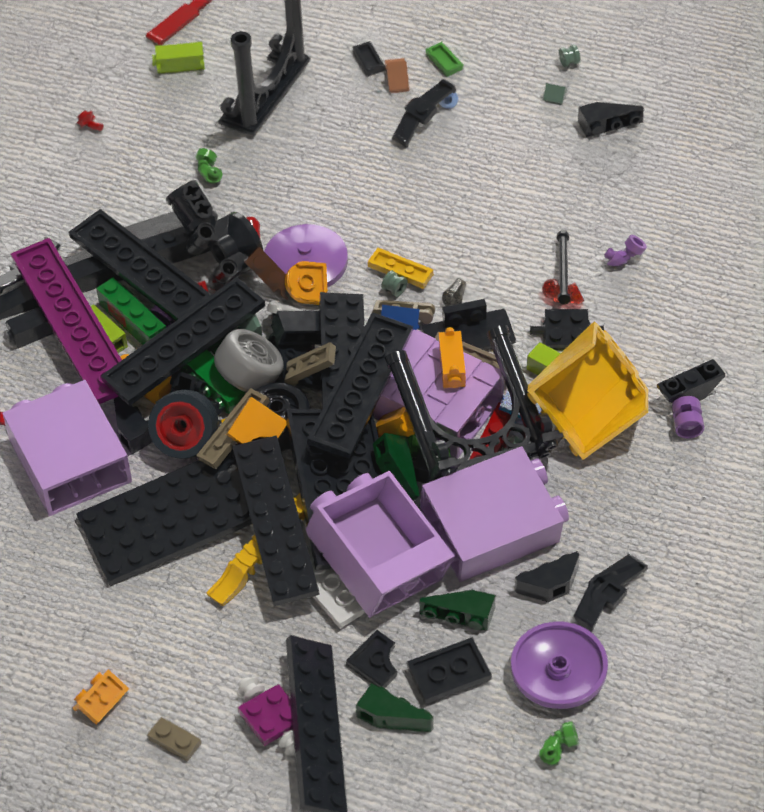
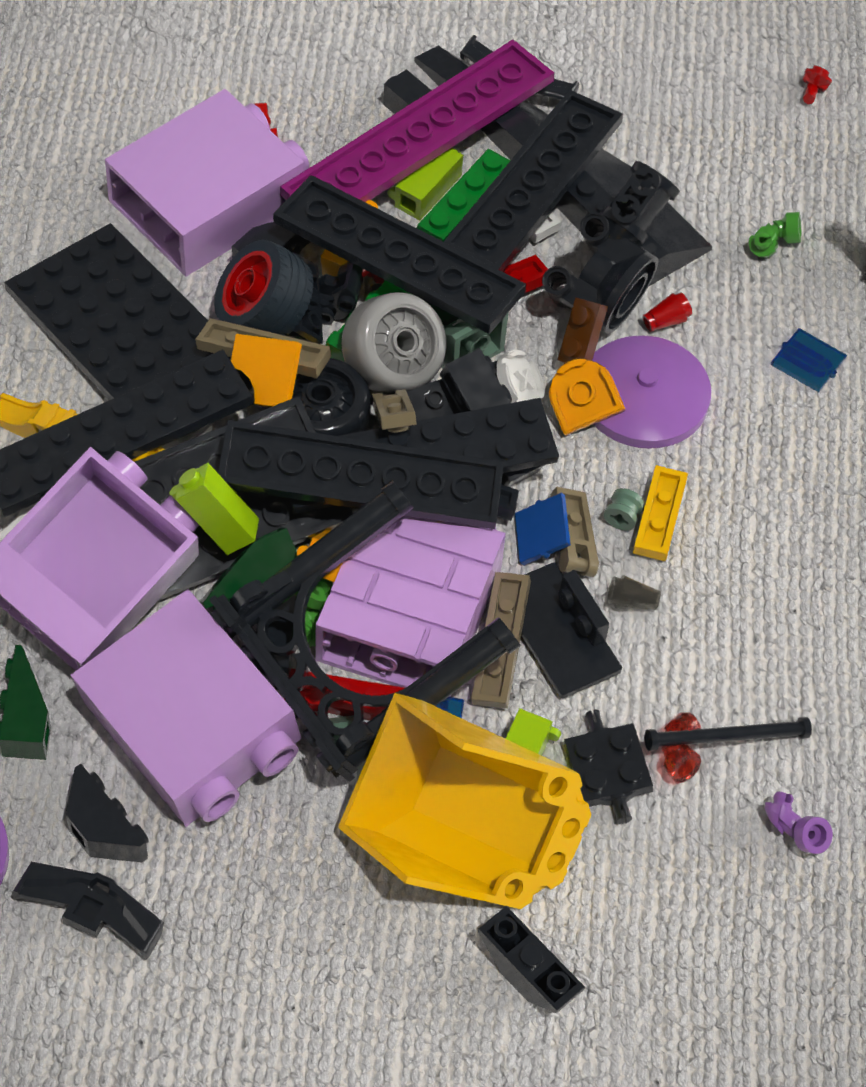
camera: 70 degrees right, 5 degrees up
(304, 176) = (808, 360): none -> clear blue piece
(365, 461) = (216, 508): none -> lime brick
(452, 359) = (443, 586): light orange brick -> none
(688, 417) = (463, 971): medium lavender wheel -> none

